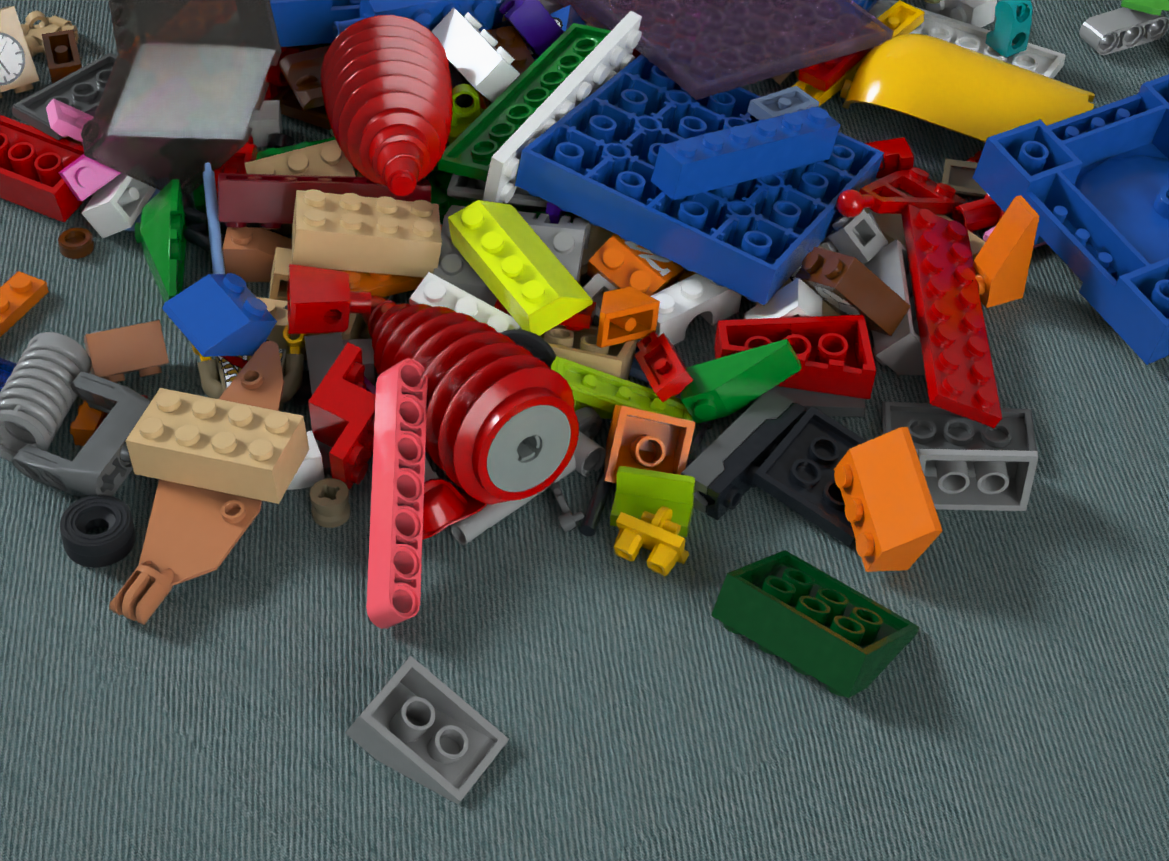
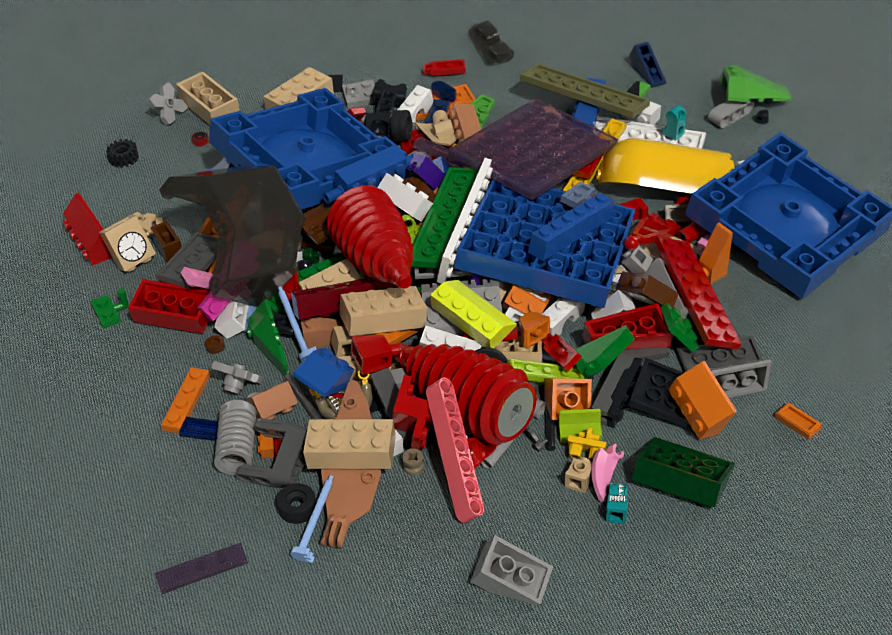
camera: 10 degrees left, 0 degrees up
(68, 615) = (301, 552): none -> light blue piece
(82, 298) = (236, 376): none -> light grey plant
(186, 361) = (302, 397): none -> flat silver bar
(296, 129) = (311, 254): none -> dark green piece
(625, 581) = (579, 470): none -> tan brick
(663, 586) = (602, 470): none -> bright pink piece
(669, 649) = (617, 503): none -> teal leg
(893, 365) = (680, 327): none -> green plate
(1066, 576) = (798, 421): none -> orange tile

